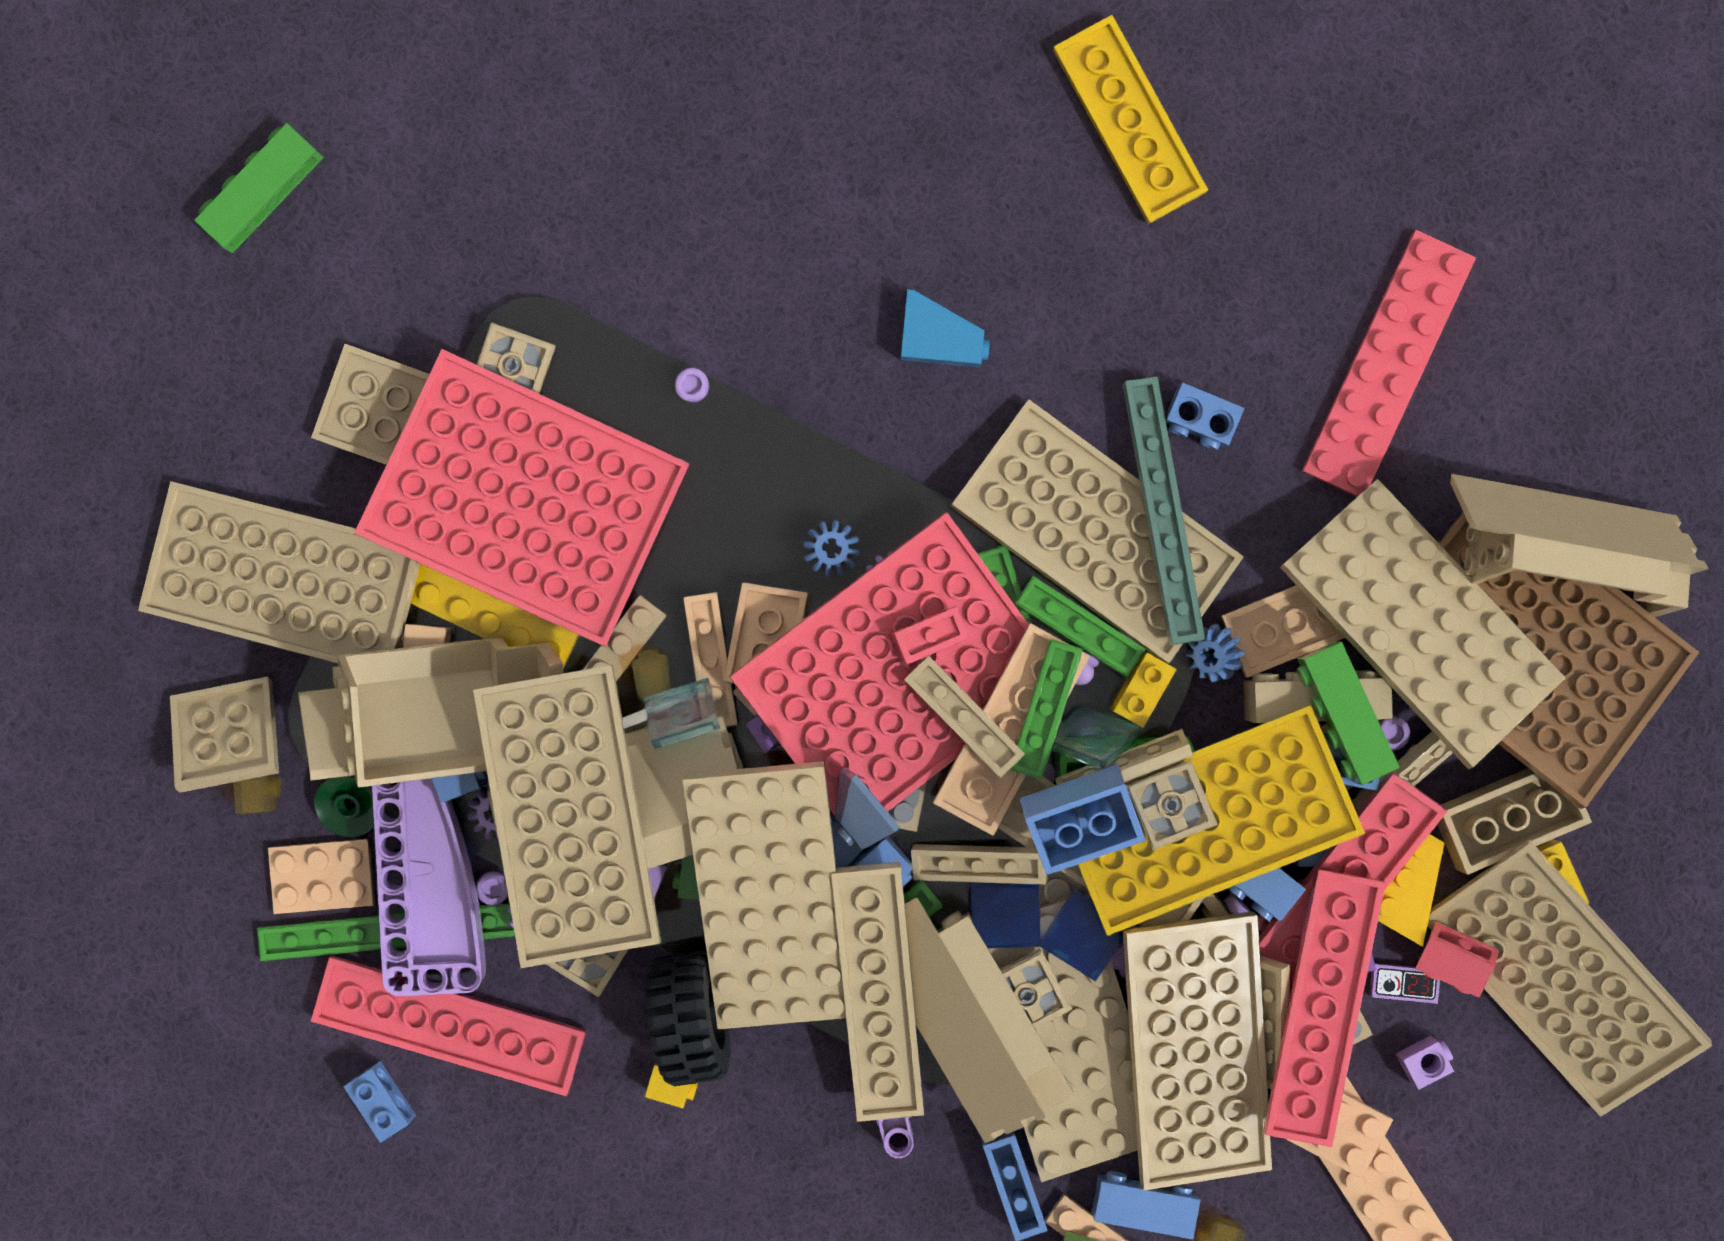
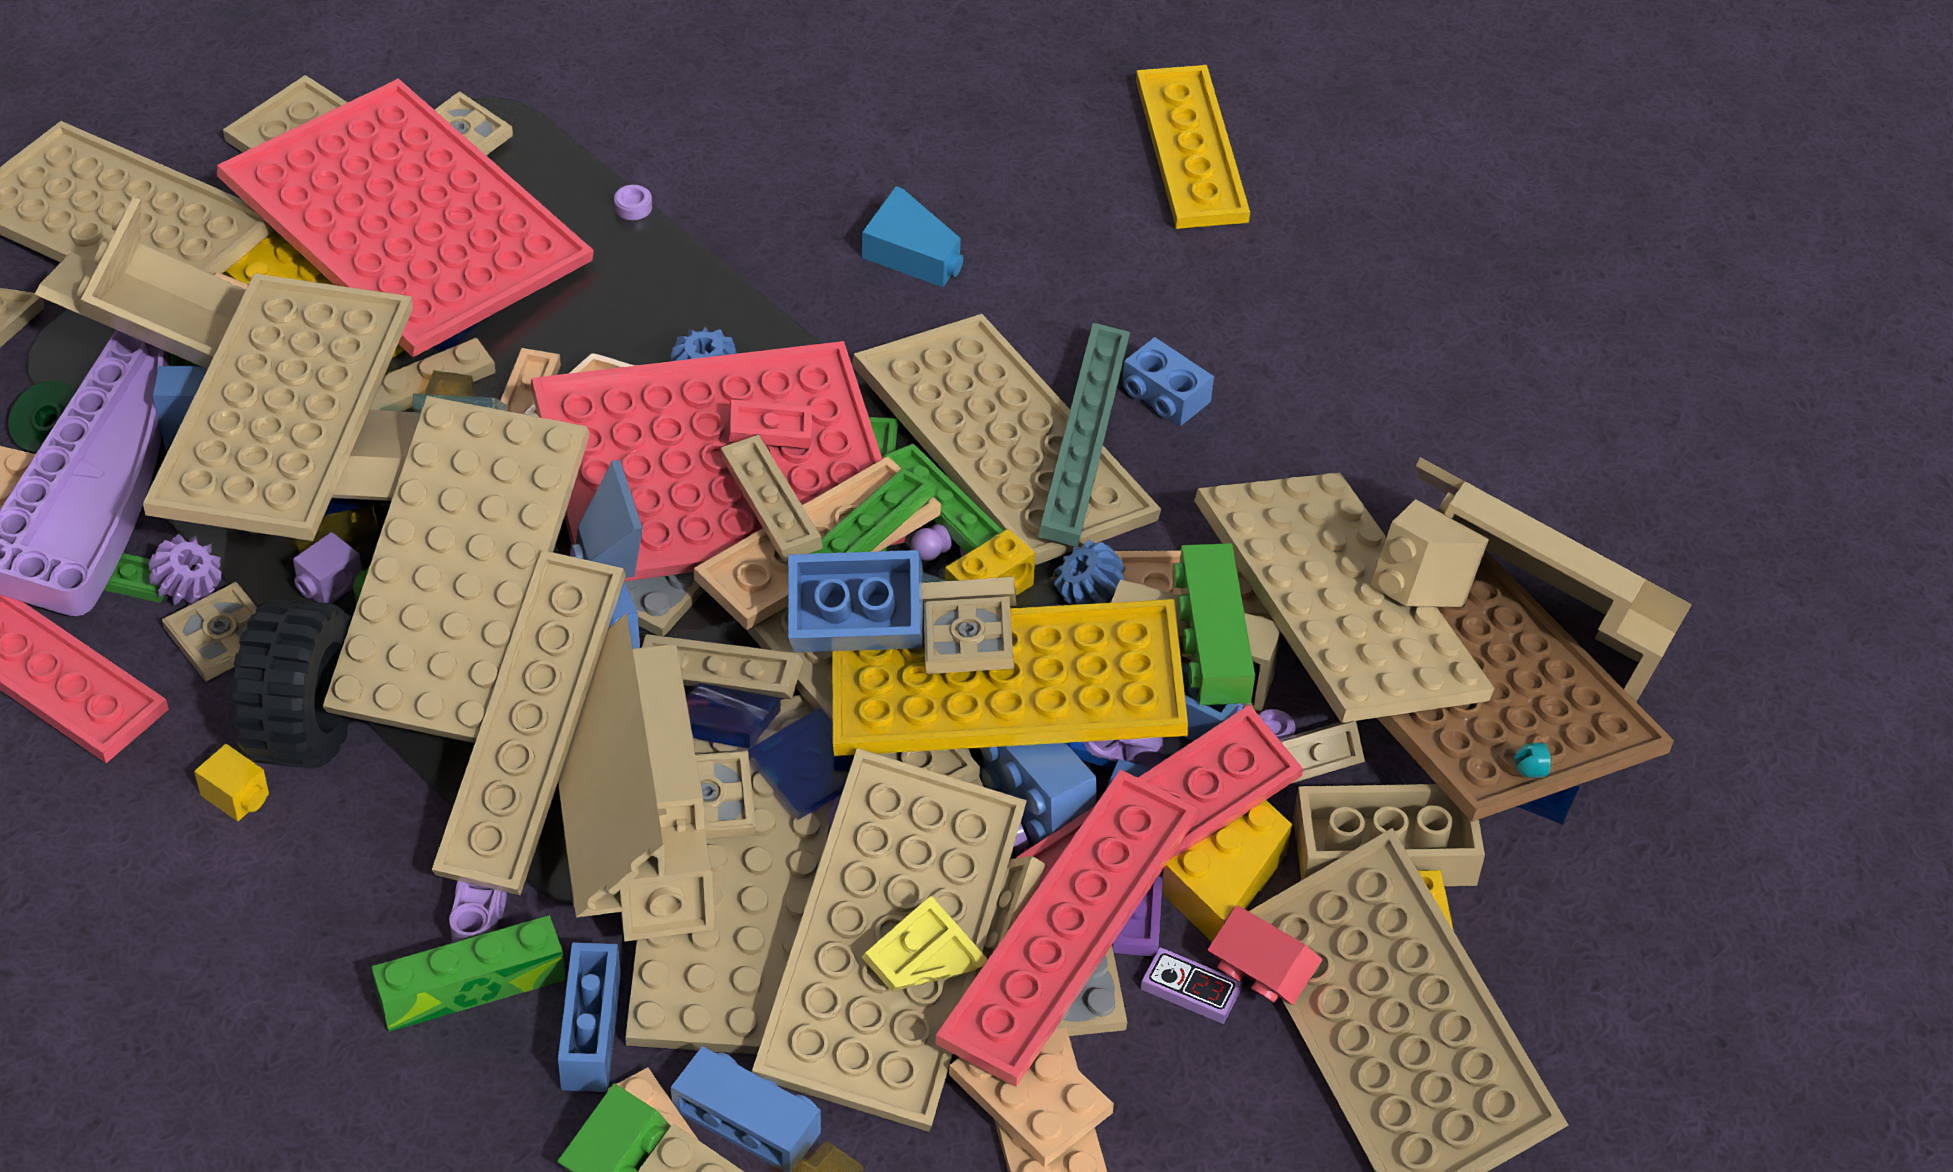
camera: 15 degrees right, 40 degrees down
(492, 888) = (147, 541): lavender tile -> none
(914, 1176) = (469, 973): none -> bright green brick
(1228, 1066) = (923, 950): none -> light yellow wing
(1388, 364) = (1398, 402): coral plate -> none
(1411, 1058) = (1174, 1085): lavender brick -> none
(1487, 593) = (1428, 559): none -> tan slope
(1616, 744) = (1533, 760): none -> teal hinge

